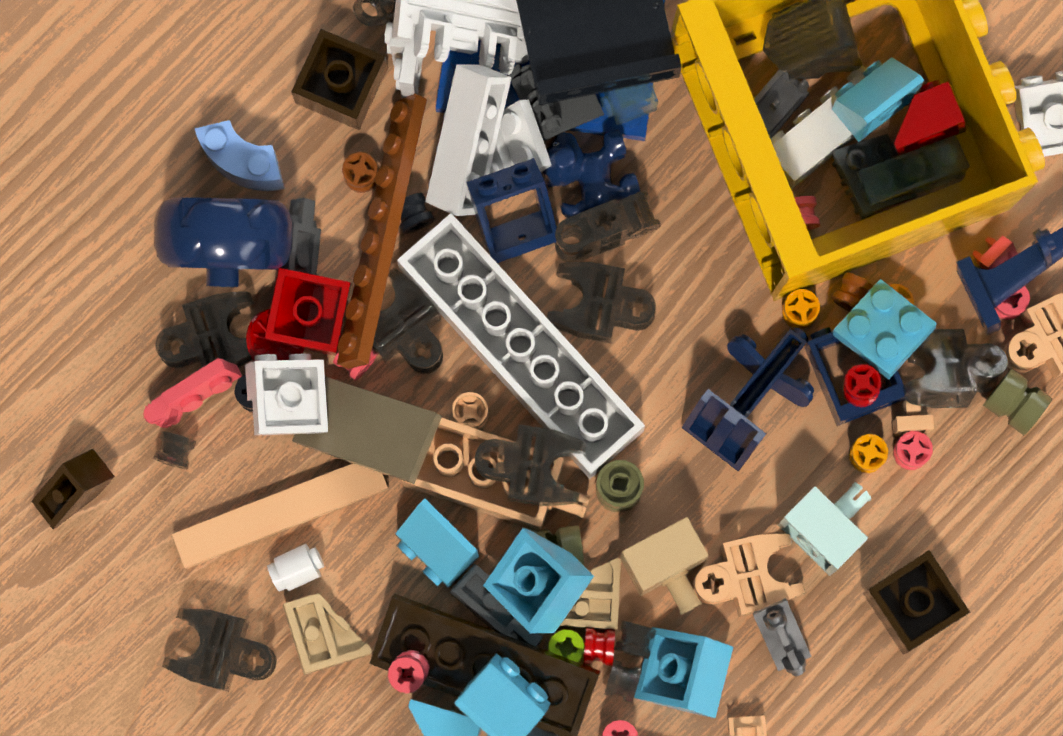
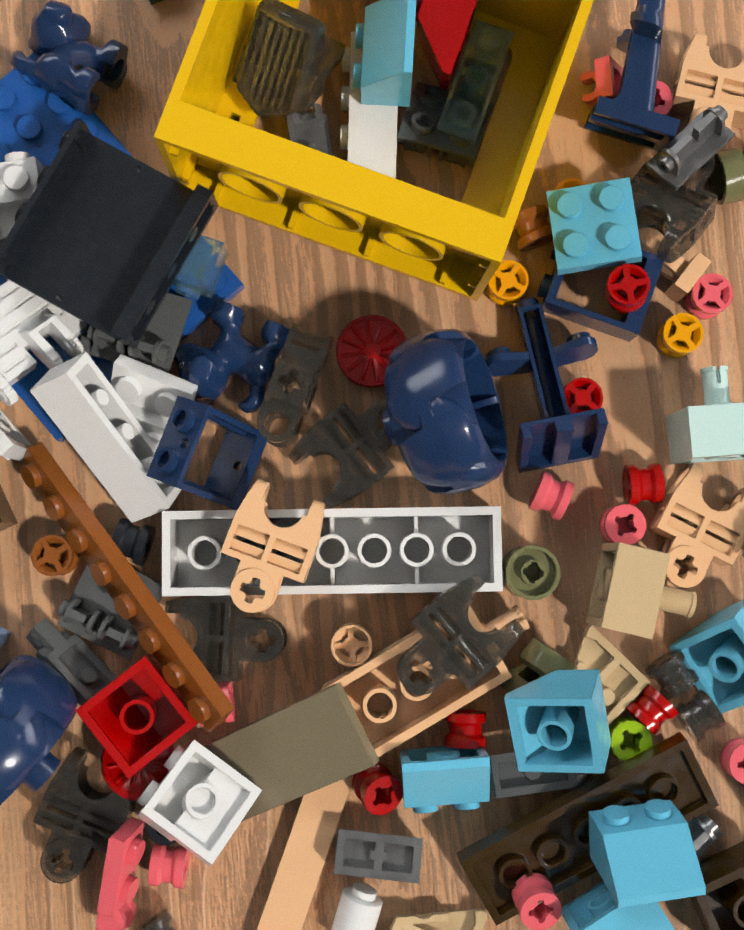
camera: 50 degrees left, 5 degrees up
(226, 417) = (168, 865): none -> coral wheel
(342, 234) = (94, 617): none -> dark grey hinge
(347, 546) = (378, 856): none -> flat silver hinge
(392, 499) = (387, 787): none -> red wheel
(474, 305) = (253, 523): none -> light nougat piece
(480, 533) = (465, 729): none -> red wheel
(674, 335) = (445, 412): none -> dark blue wheel
(676, 260) = (365, 349): none -> red wheel
(683, 459) = (551, 495): none -> coral wheel
(705, 525) = (614, 522): none -> coral wheel
(745, 513) = (643, 484): none -> red wheel
(766, 417) = (585, 393): none -> red wheel
(994, 348) = (692, 147): none -> flat silver hinge

